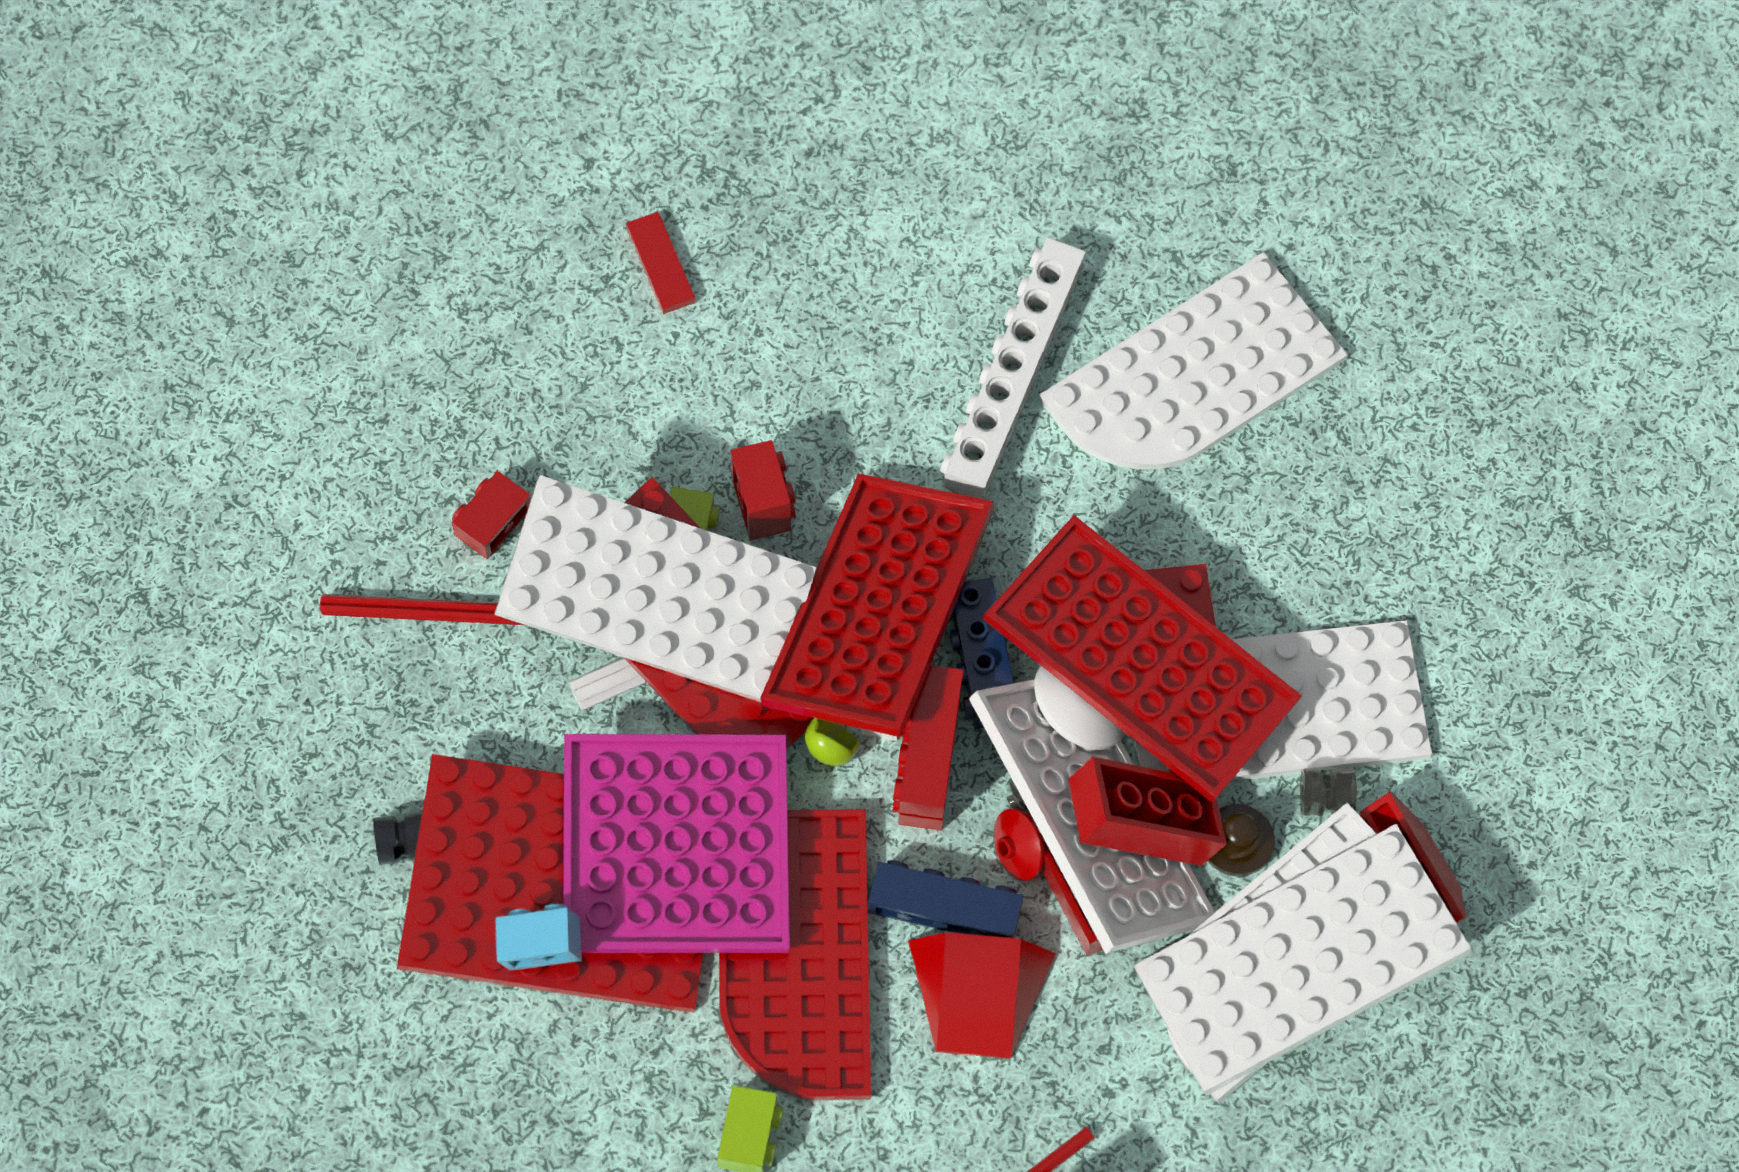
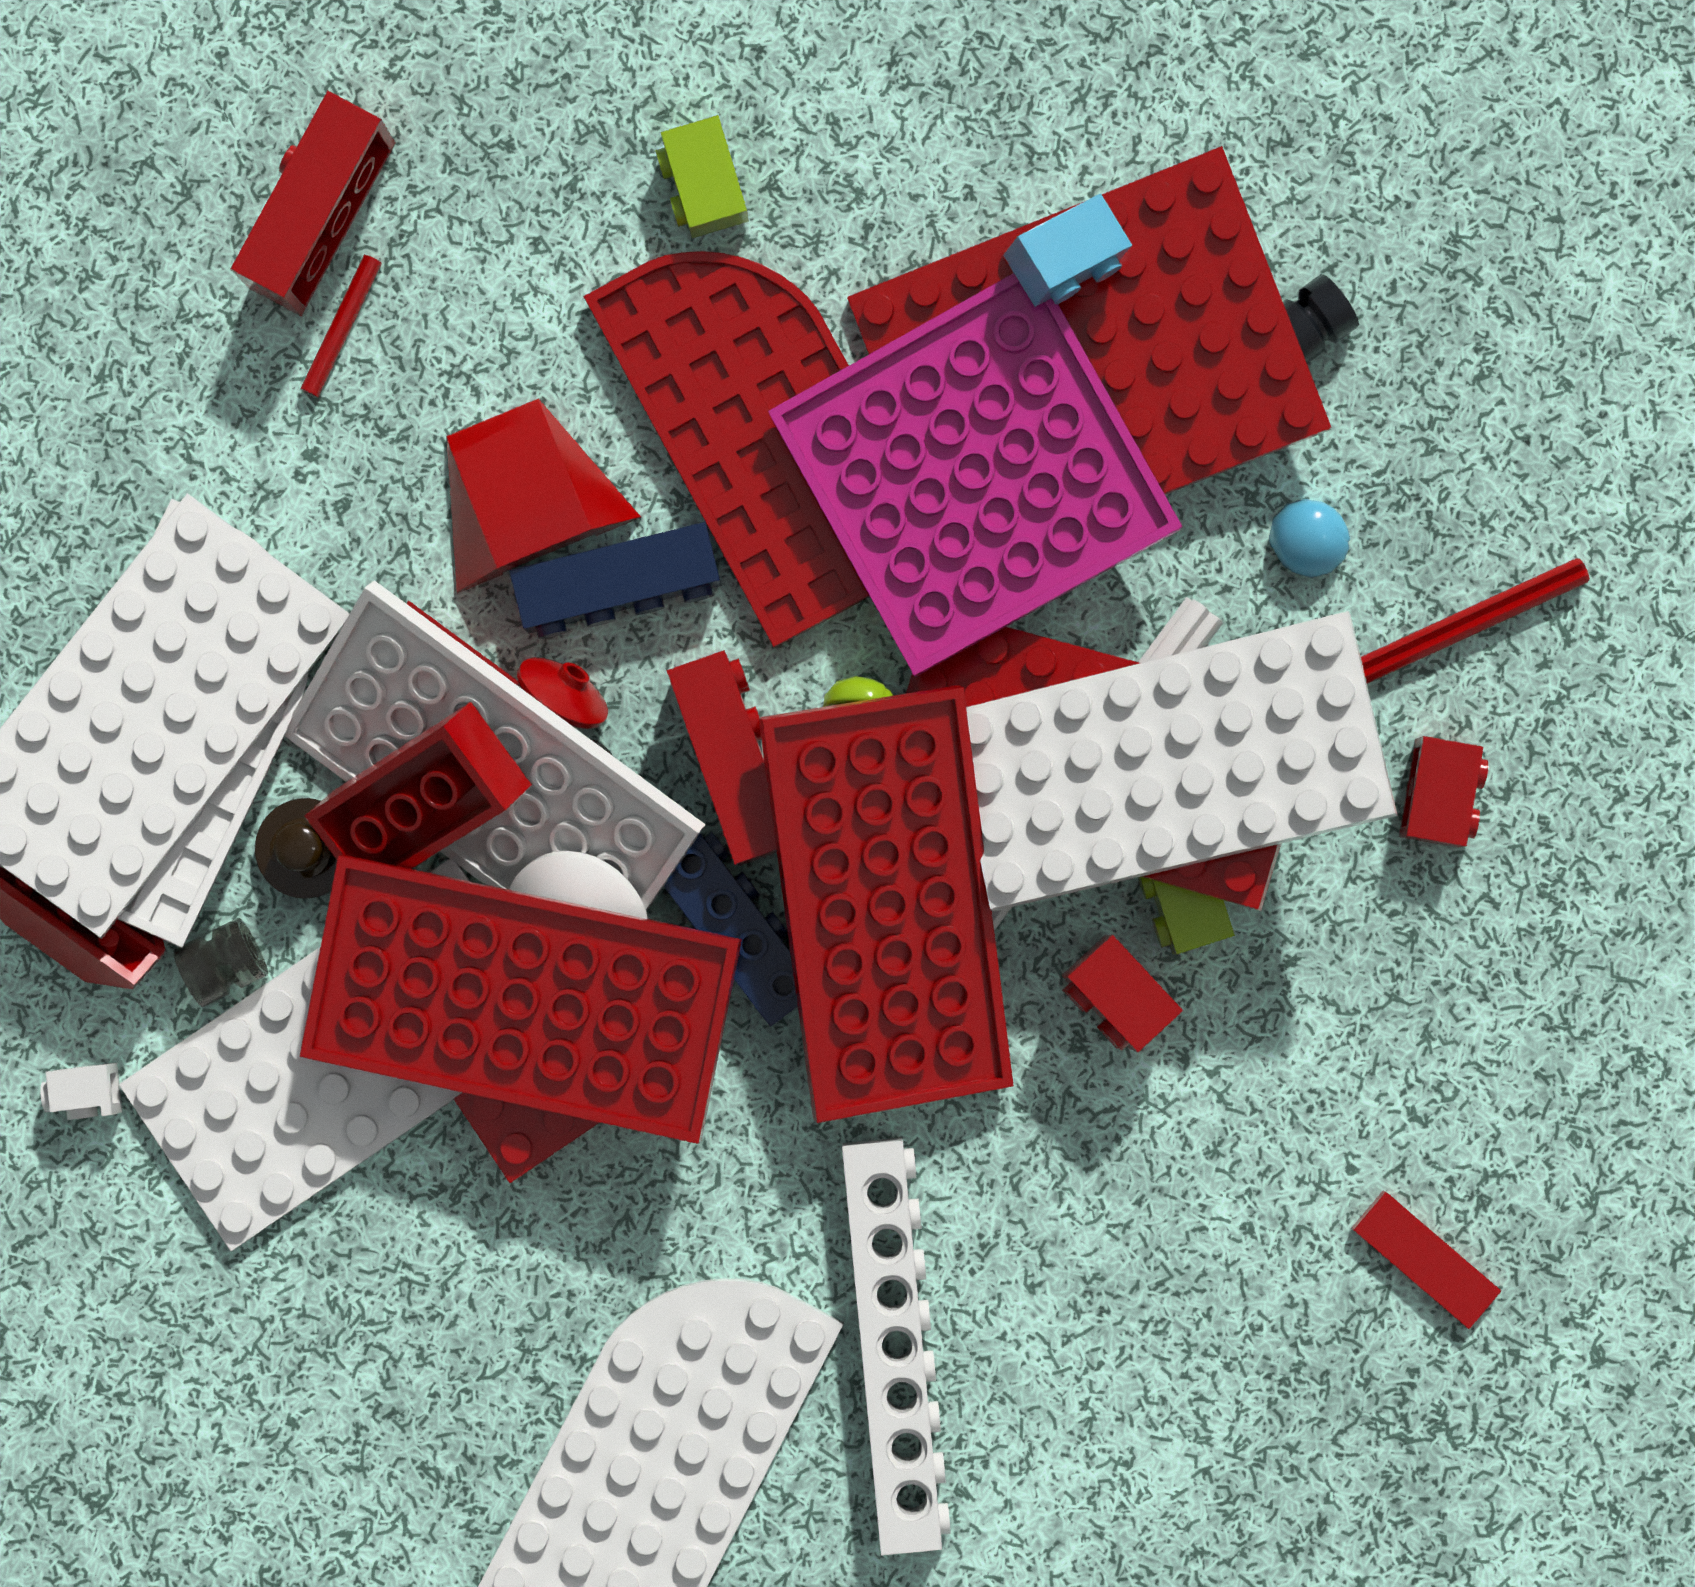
camera: 160 degrees right, 20 degrees up
(482, 709) = (1309, 537): none -> medium azure hair
(1457, 760) = (82, 1091): none -> white brick

